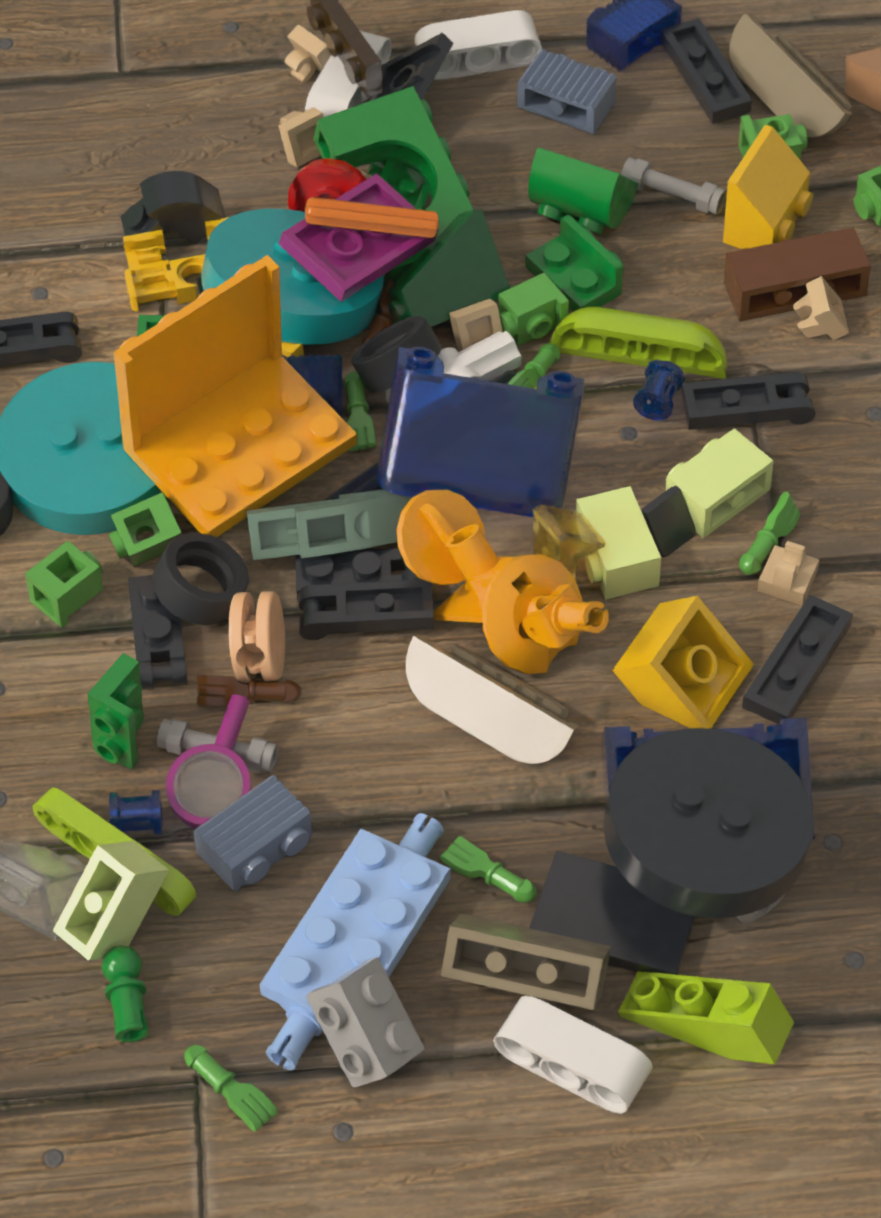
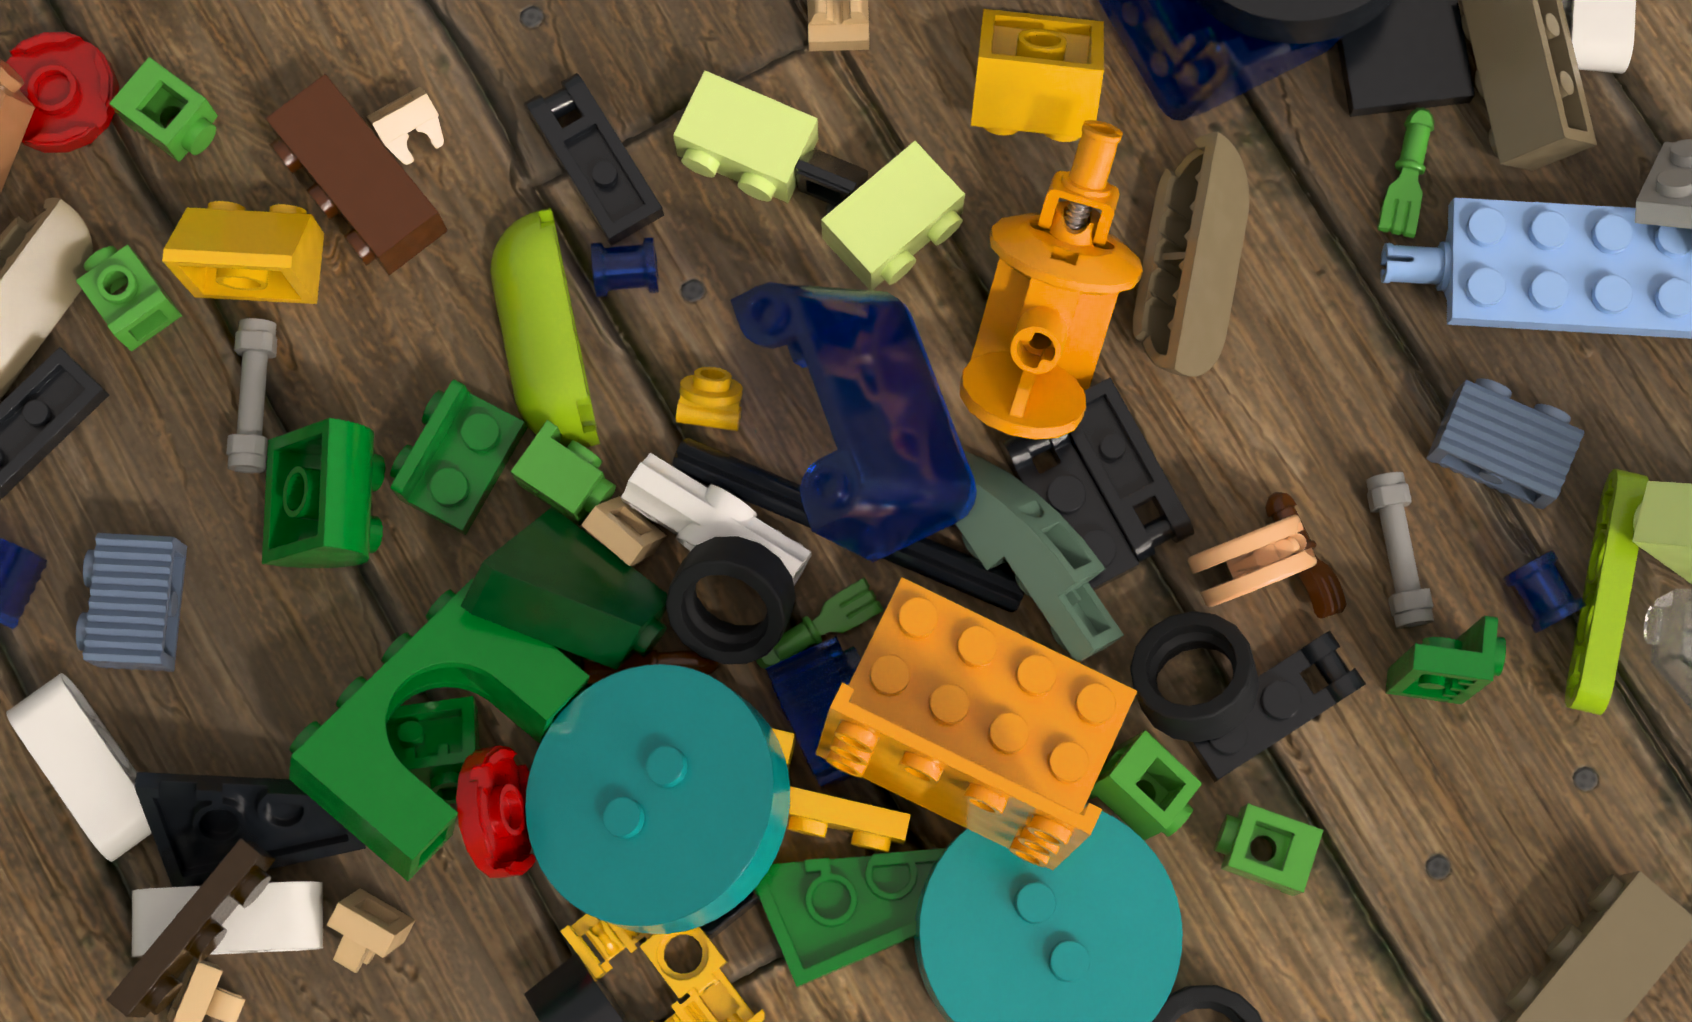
camera: 115 degrees left, 25 degrees up
(210, 775) = (1459, 526): piece -> none
(352, 258) = (591, 712): magenta plate -> none
(371, 217) = (569, 696): orange axle -> none
(537, 368) = (690, 428): bright green piece -> none
(564, 536) = (946, 254): clear yellow slope -> none
(778, 524) = (800, 59): bright green piece -> none

